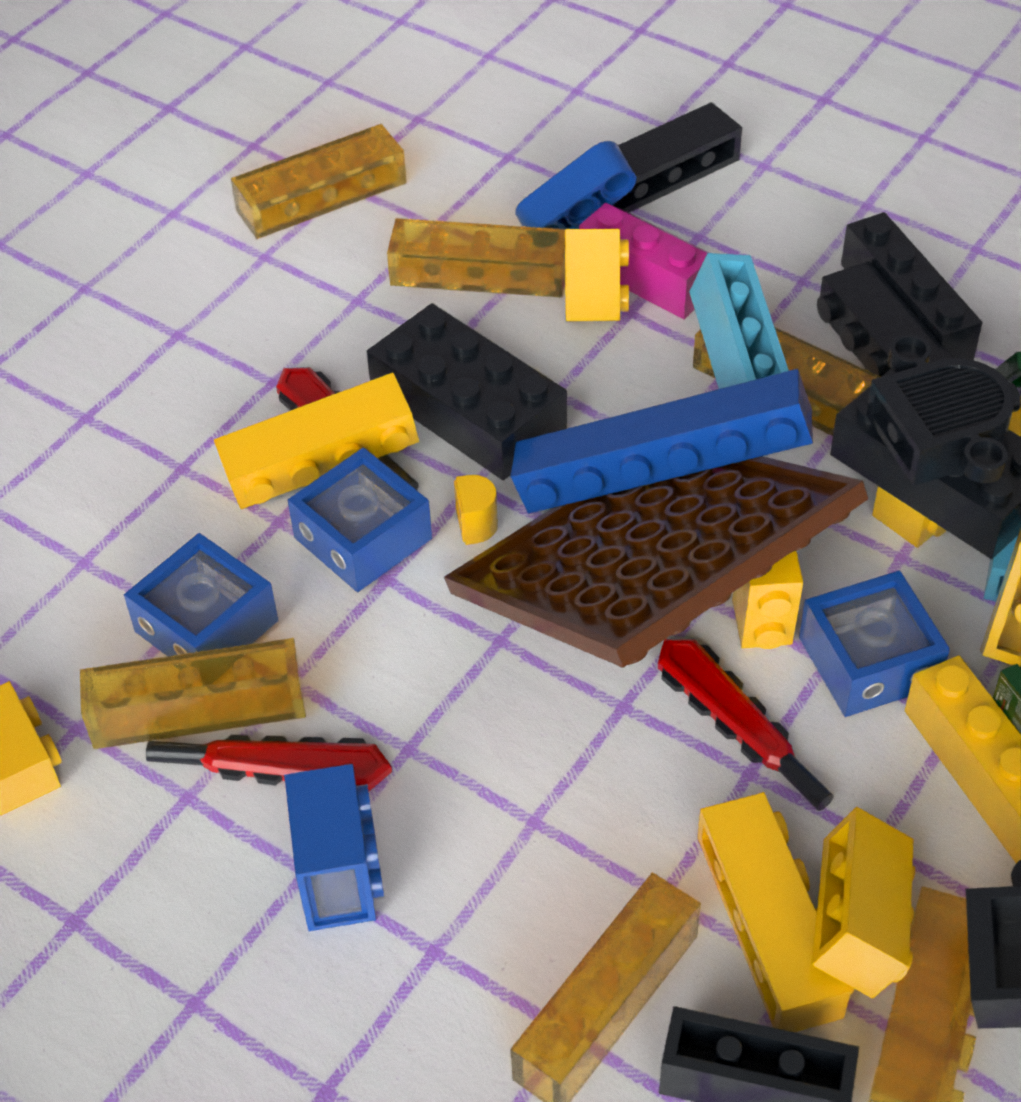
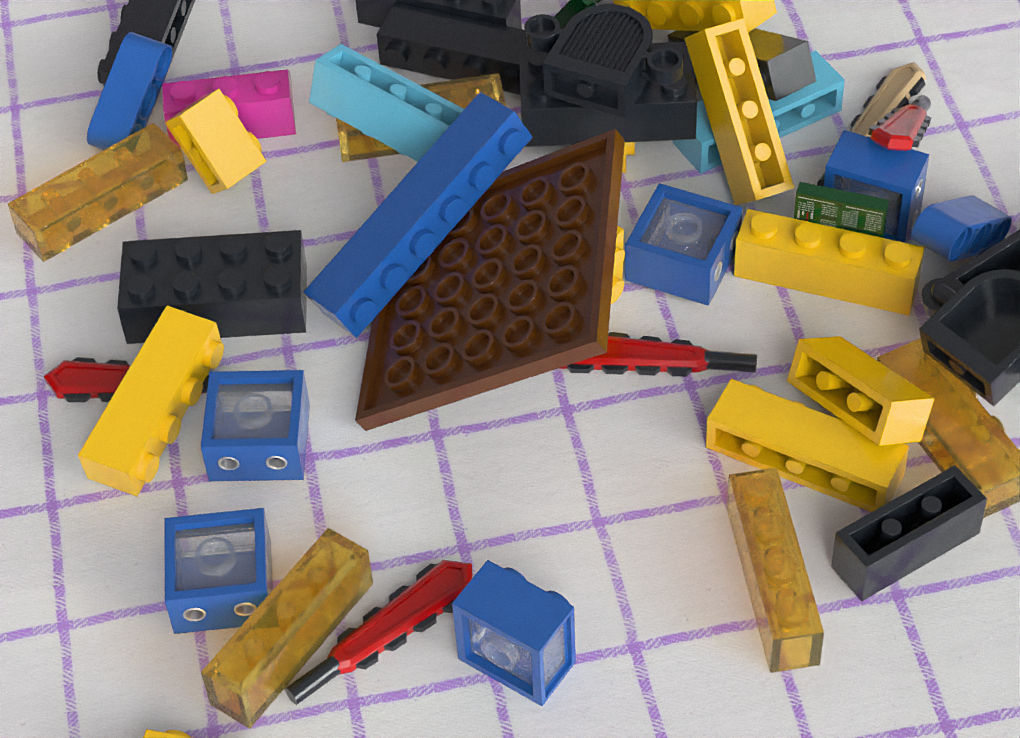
camera: 45 degrees left, 0 degrees up
(476, 508) = (320, 358): yellow brick -> none

